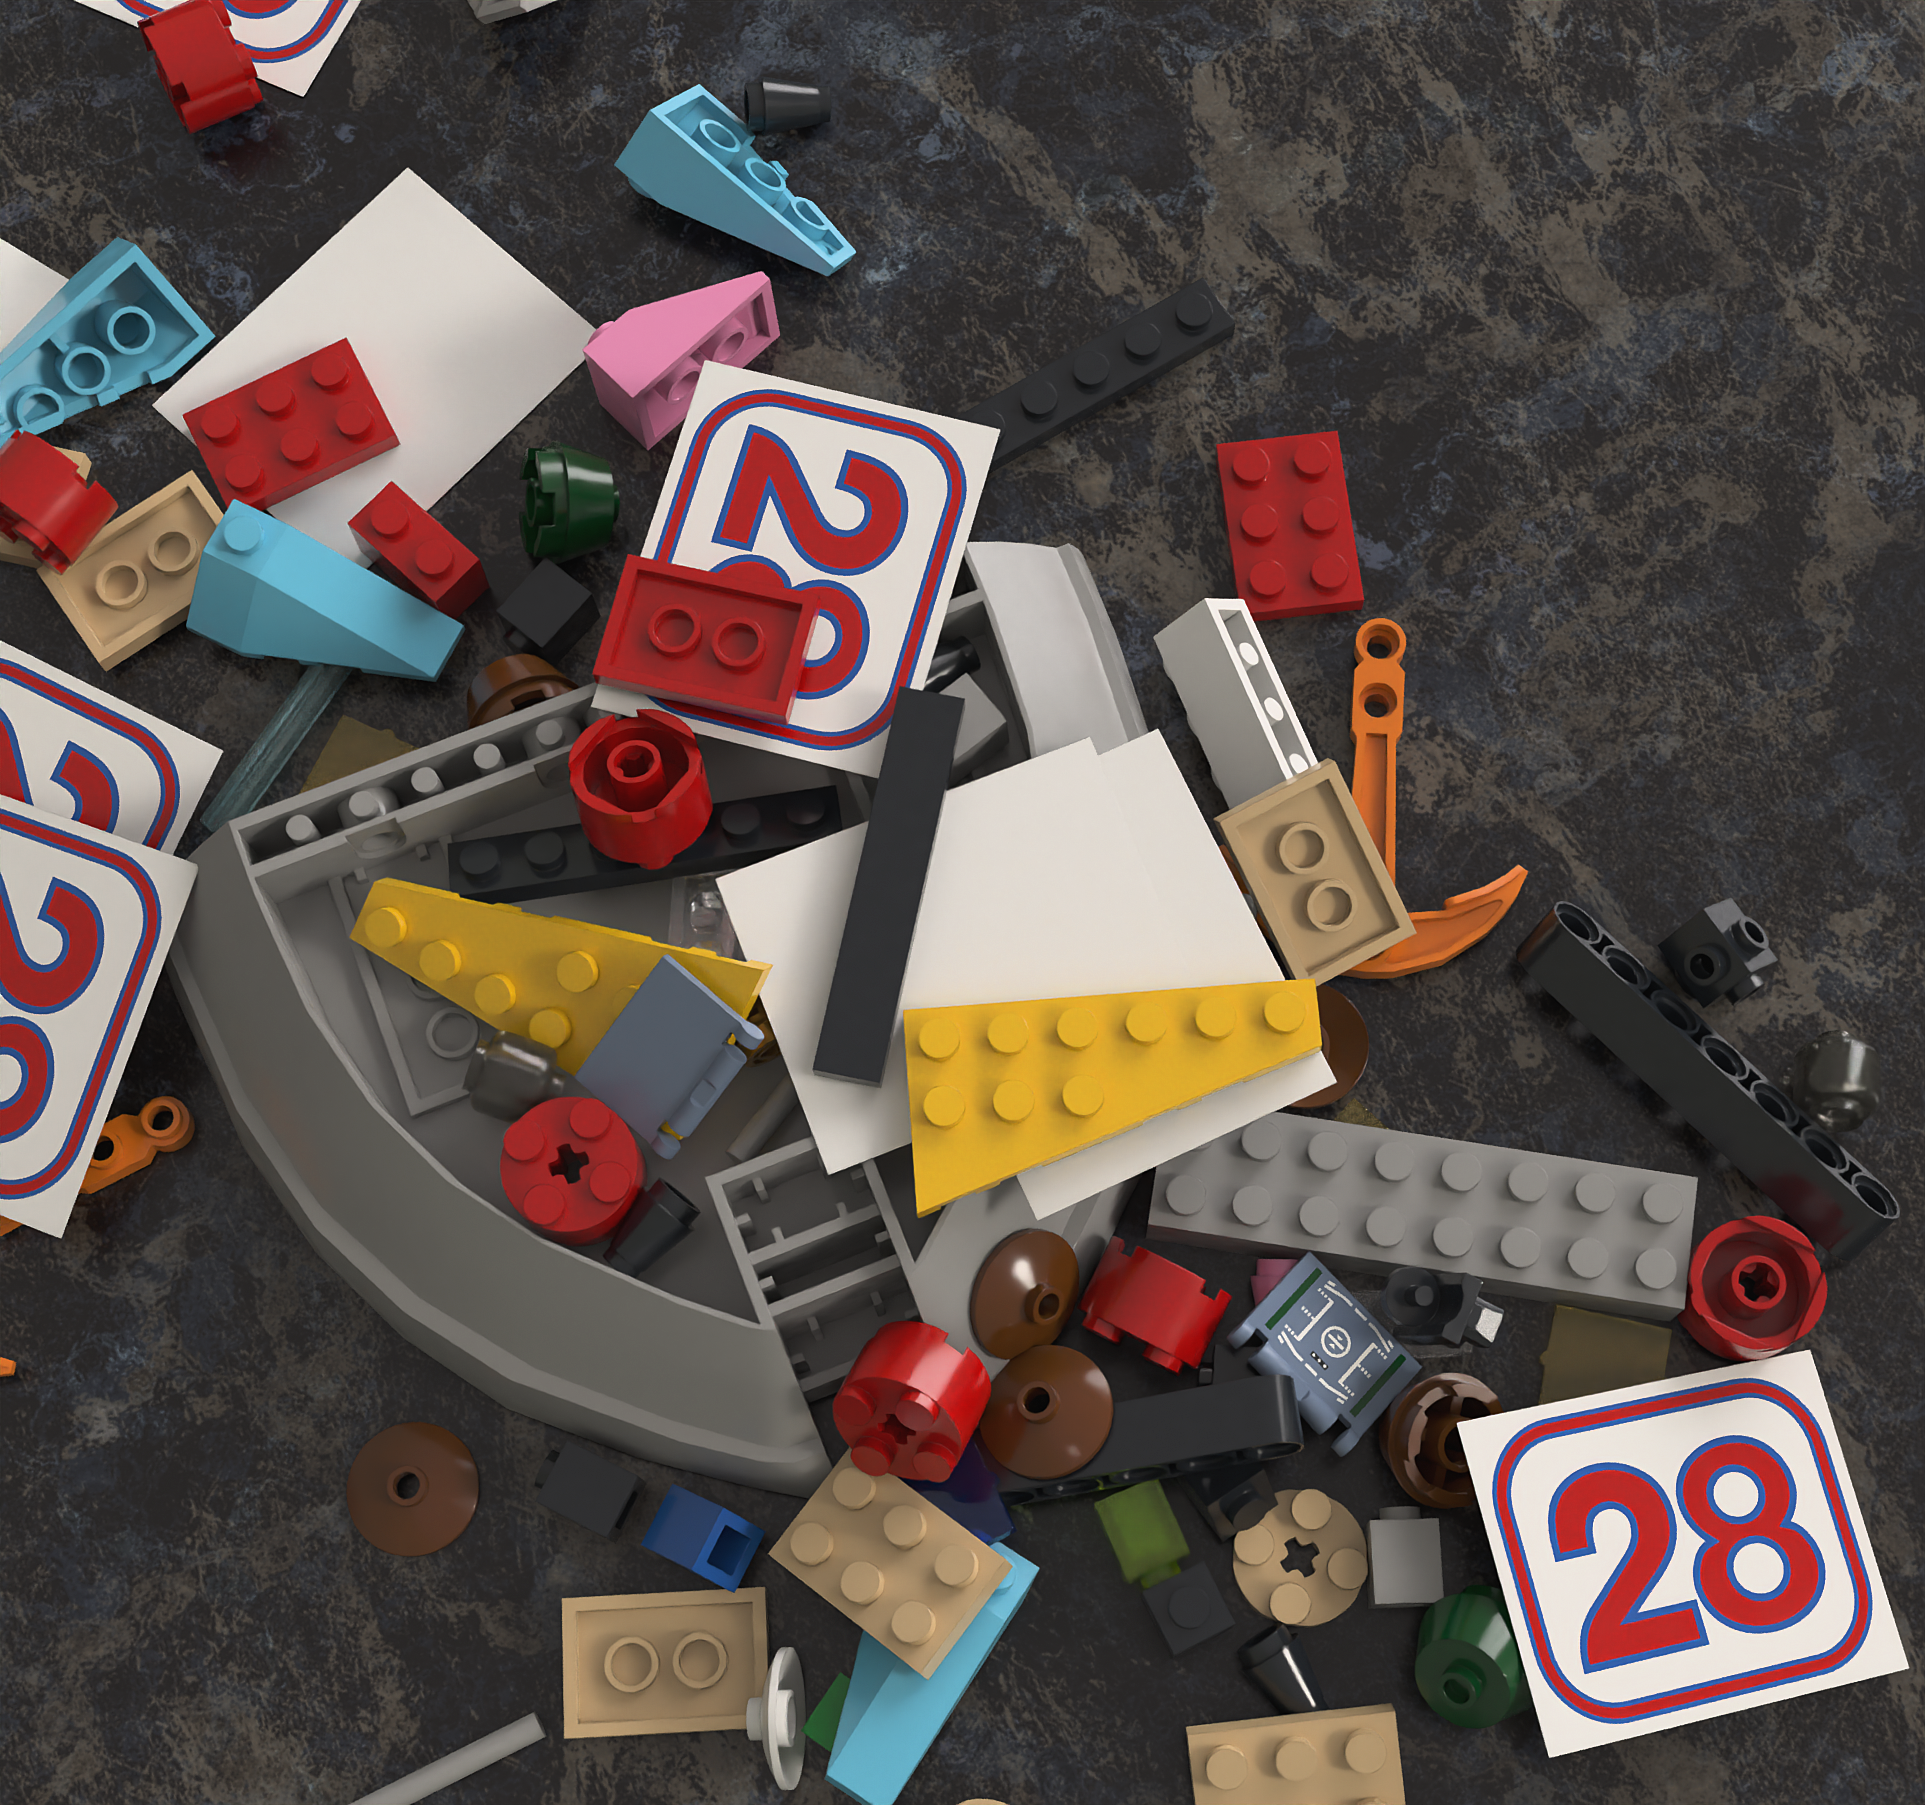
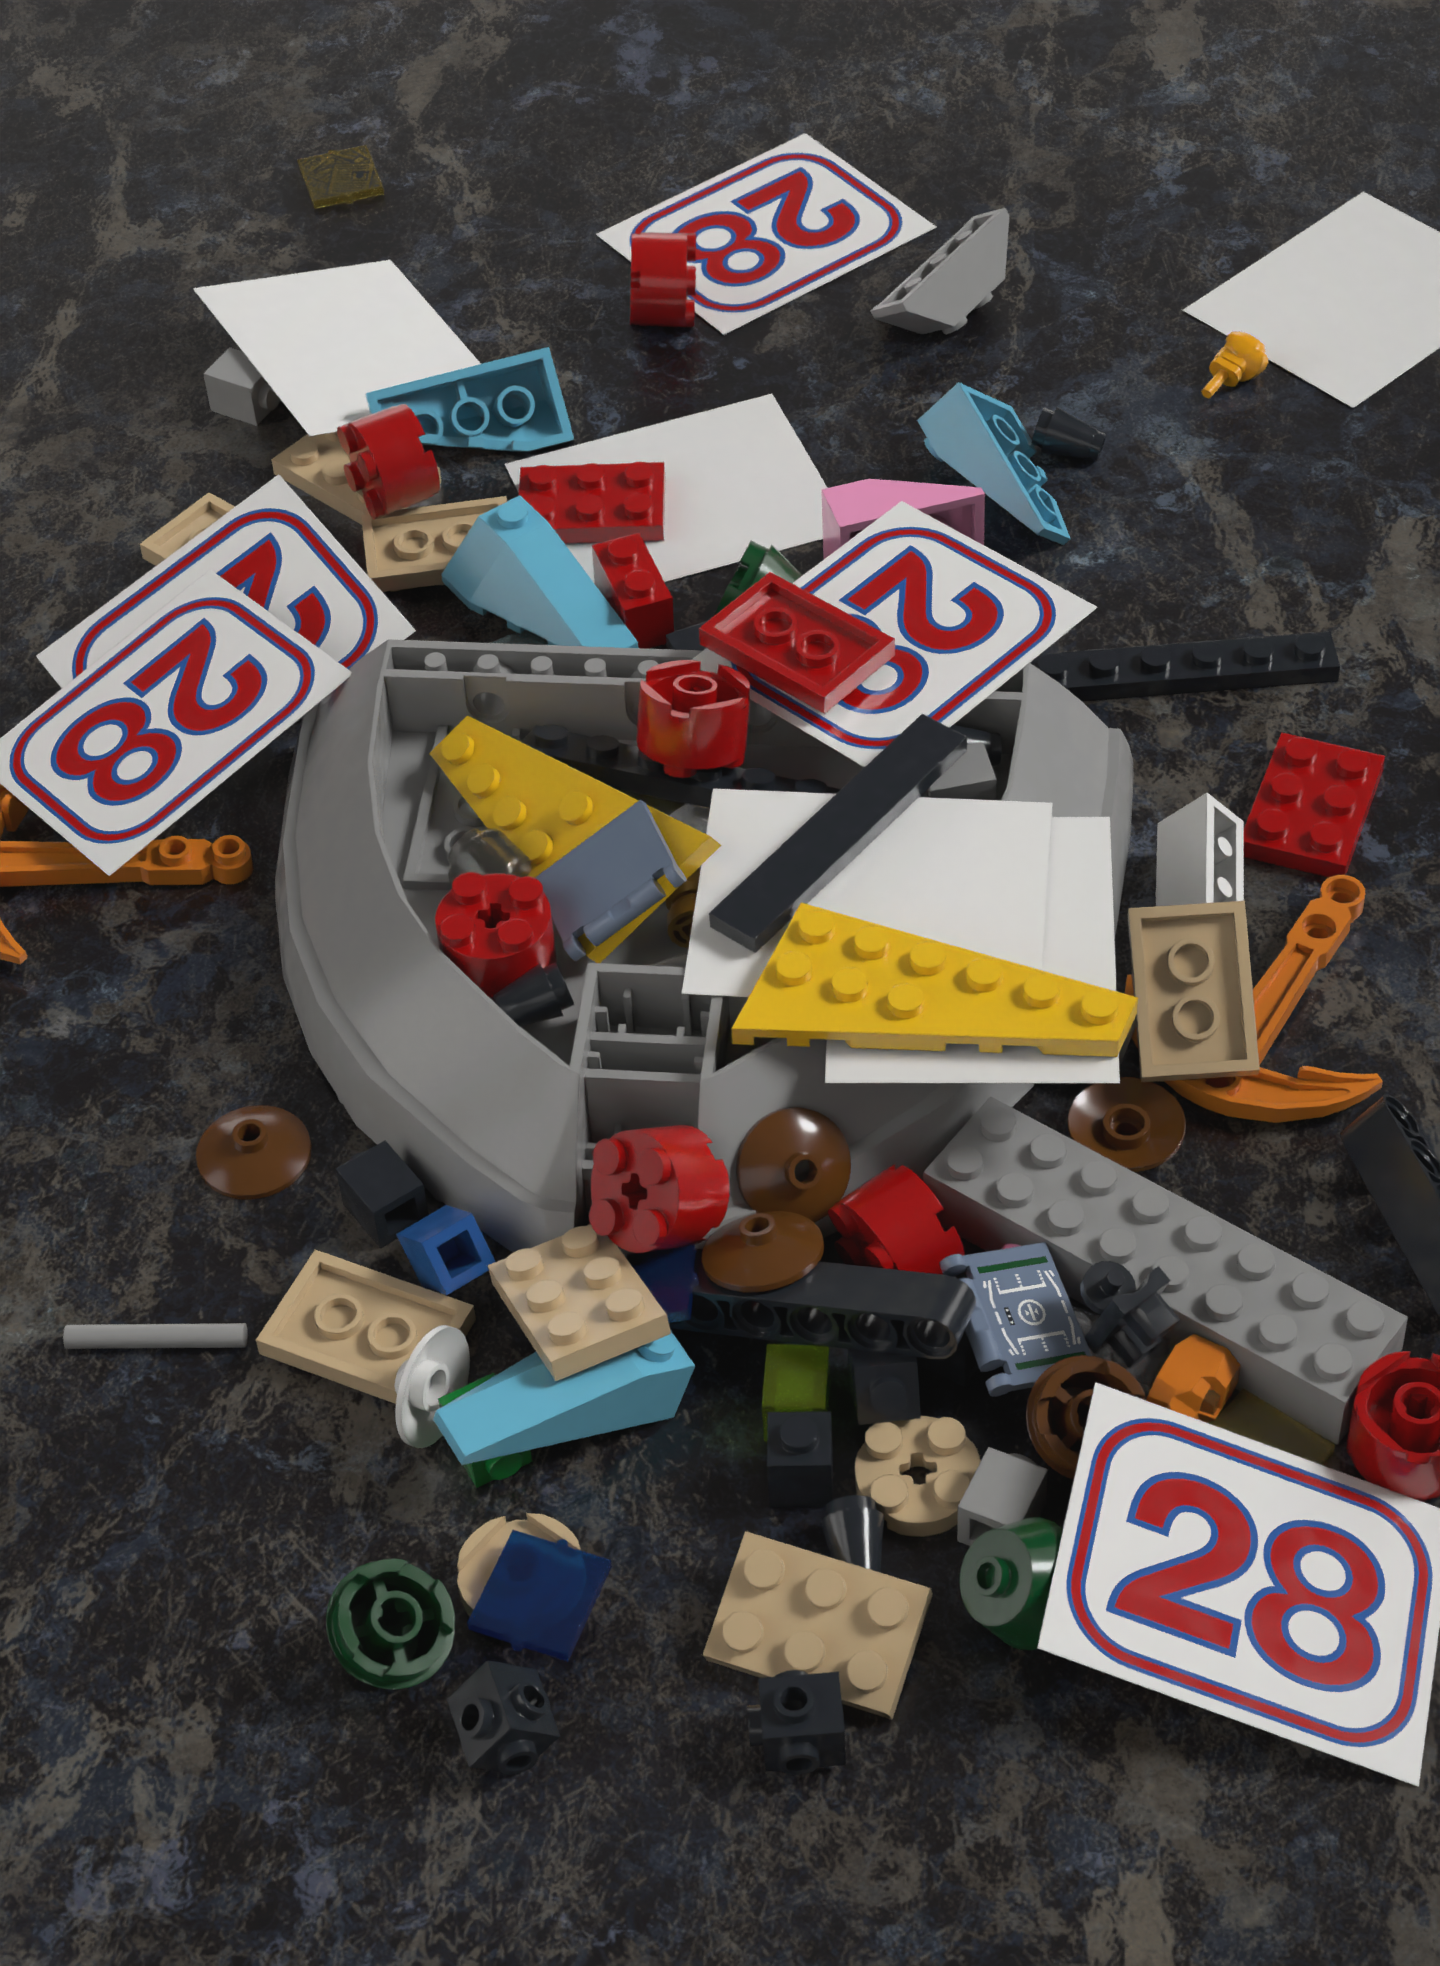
camera: 25 degrees right, 25 degrees down
(1520, 1341) = (1196, 1379): none -> orange rock

